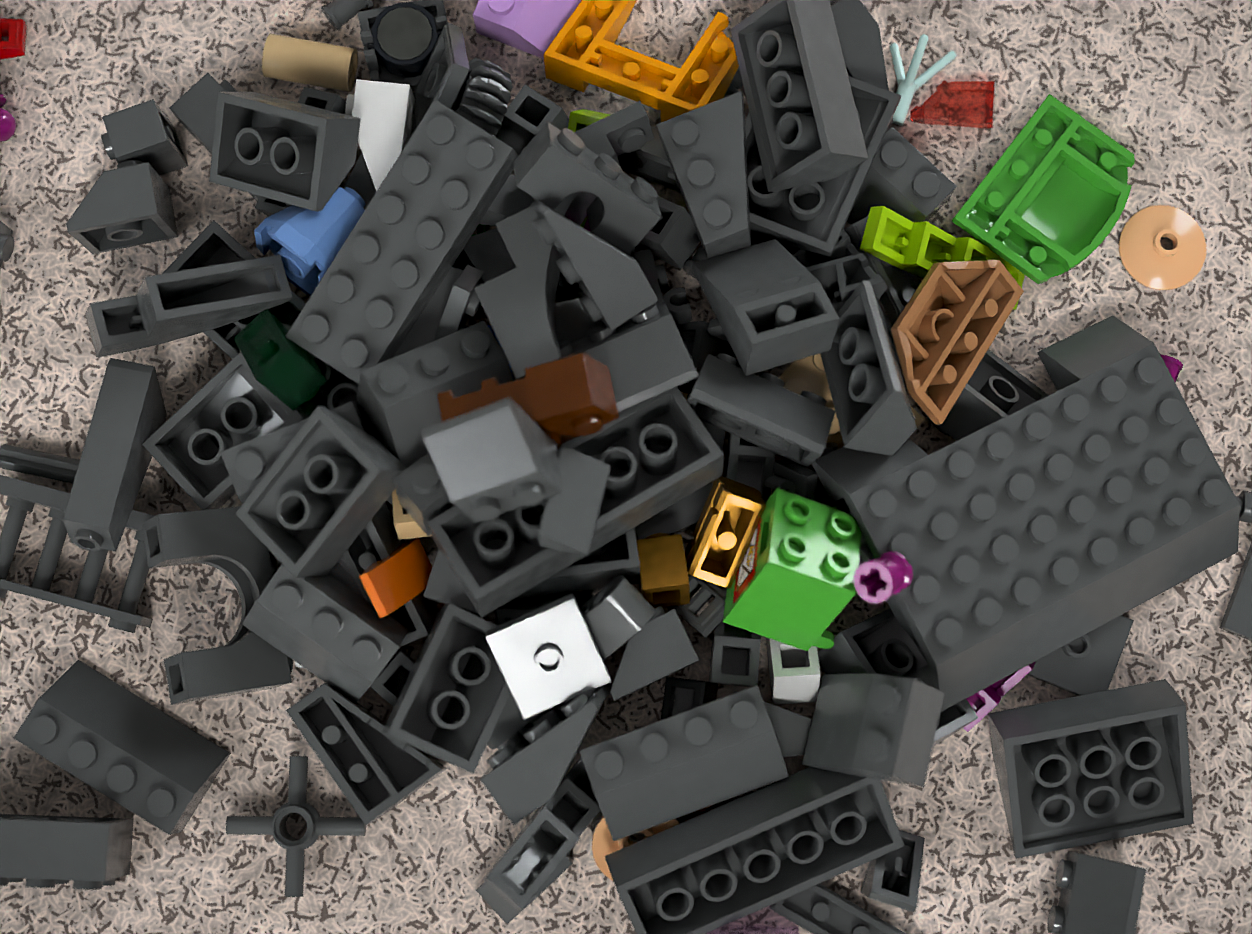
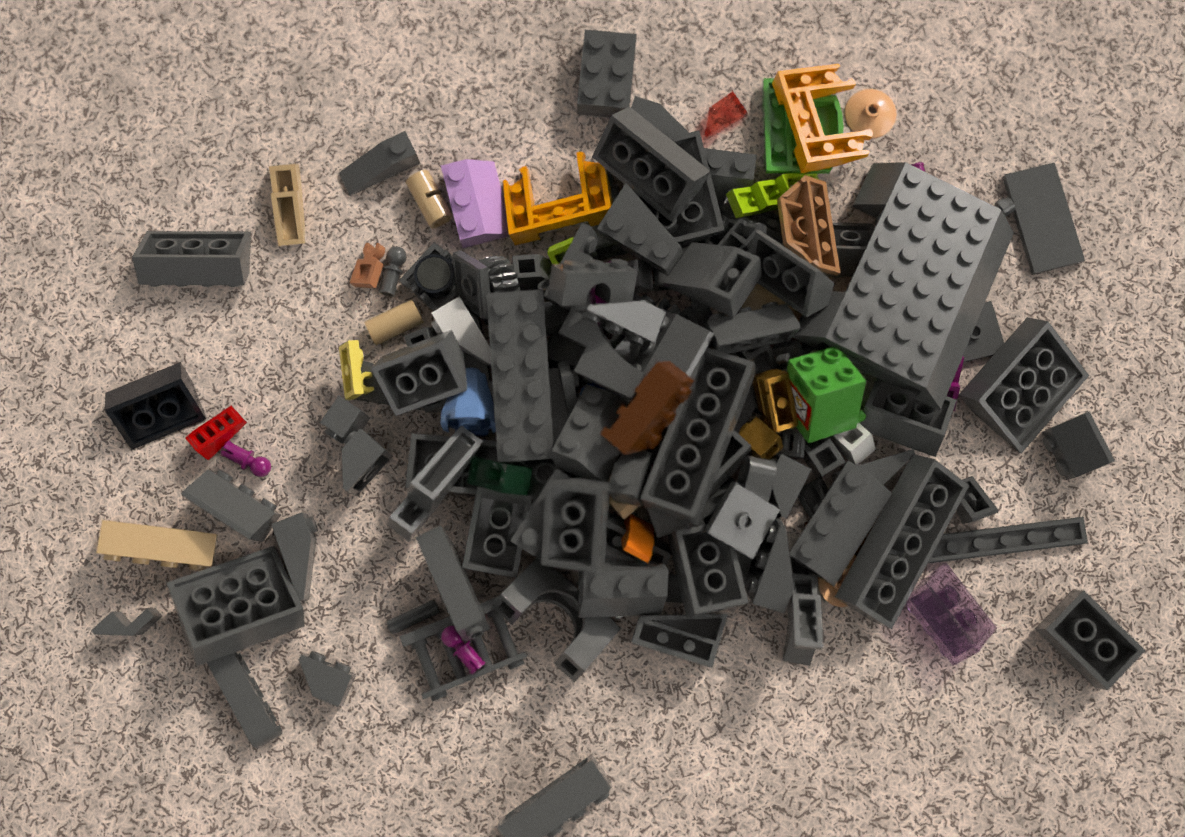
camera: 35 degrees left, 0 degrees up
(63, 556) = (463, 650): none -> magenta pin
(123, 747) = (562, 721): dark grey slope -> none
(209, 67) = (351, 359): none -> light yellow plate
(276, 826) = (681, 706): dark grey bar -> none
(494, 460) = (655, 444): slope -> none
(573, 514) = (704, 437): dark grey slope -> none
(874, 727) = (917, 439): dark grey slope -> none
(883, 577) = (867, 371): magenta bush -> none
(908, 84) = (694, 117): light aqua plant -> none
(1040, 235) = (814, 150): none -> light orange wedge

